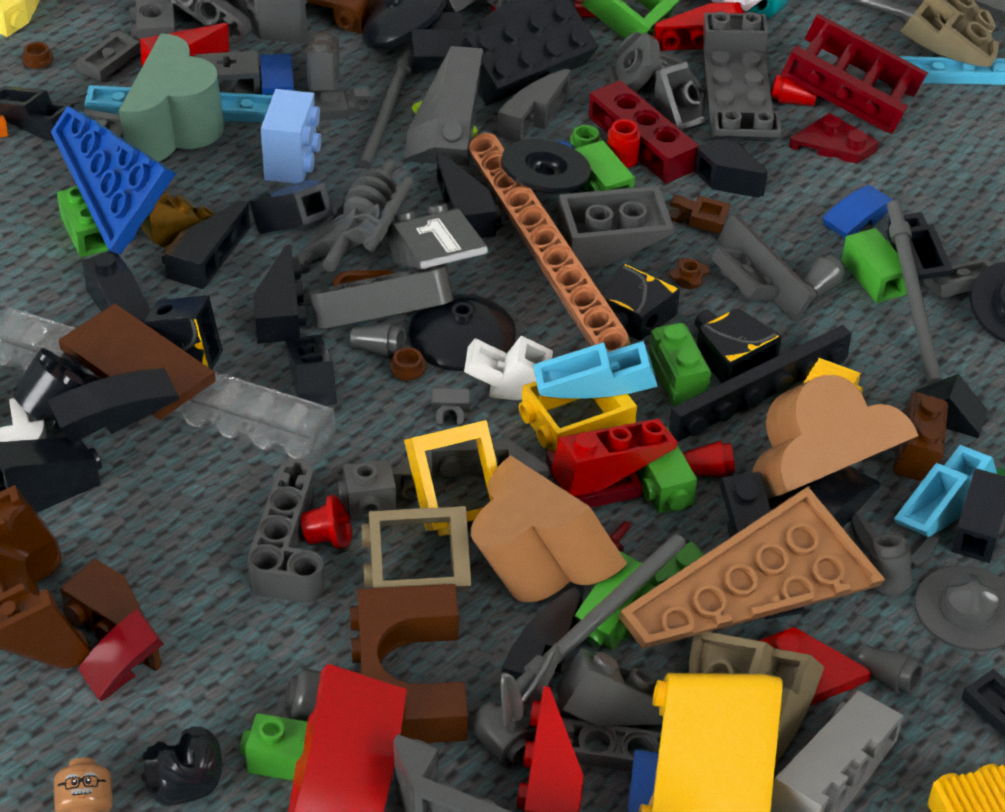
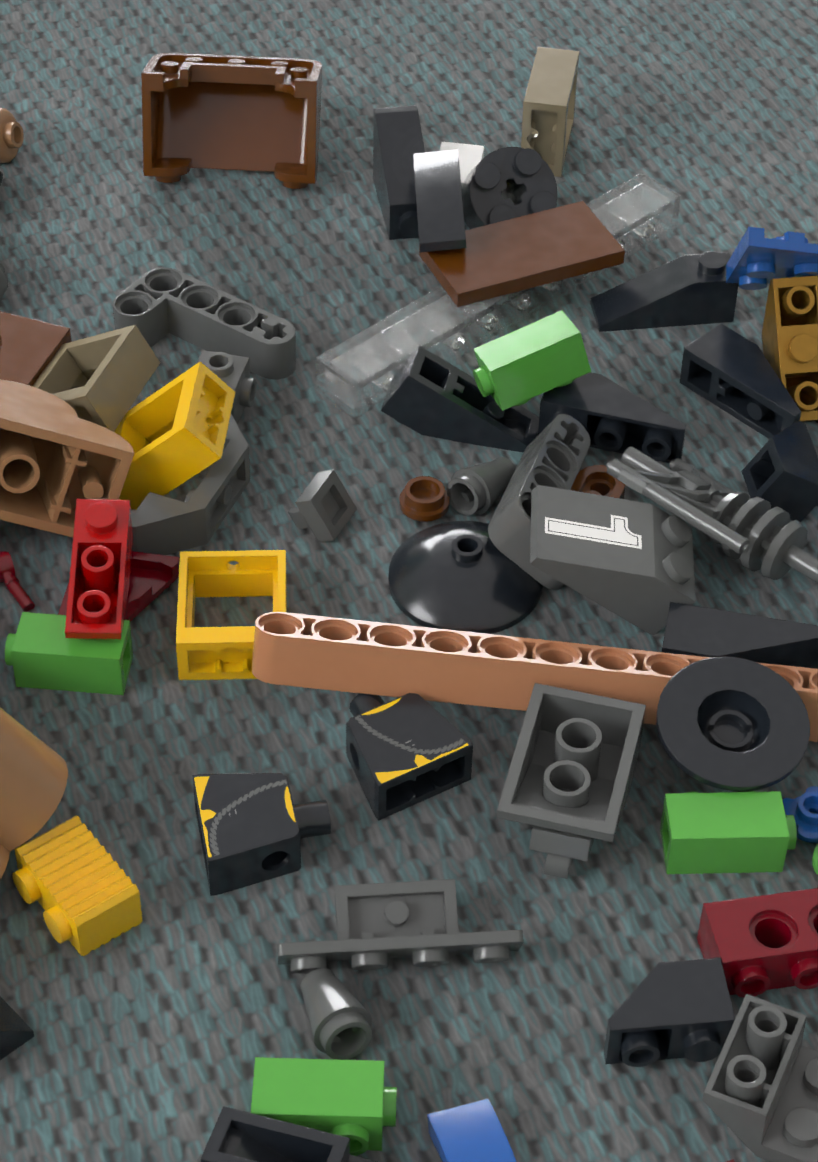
camera: 115 degrees right, 0 degrees up
(100, 601) = (182, 195): reddish brown slope -> none
(122, 649) = (120, 178): dark red slope -> none
(189, 325) = (577, 292): black torso -> none
(282, 307) = (531, 361): none -> bright green brick
(328, 524) = (183, 345): red piece -> none
(504, 370) = (341, 566): white brick -> none
(596, 372) = (238, 593): medium azure slope -> none
(625, 141) = (782, 865): red brick -> none
(678, 363) = (243, 739): bright green brick -> none
(689, 273) = (445, 867): reddish brown plate -> none
(703, 213) = (572, 932): reddish brown plate -> none
(711, 460) = (60, 711): red cone -> none
(757, 384) = (153, 846): black plate -> none
(900, 235) = (313, 1105): dark grey bar -> none

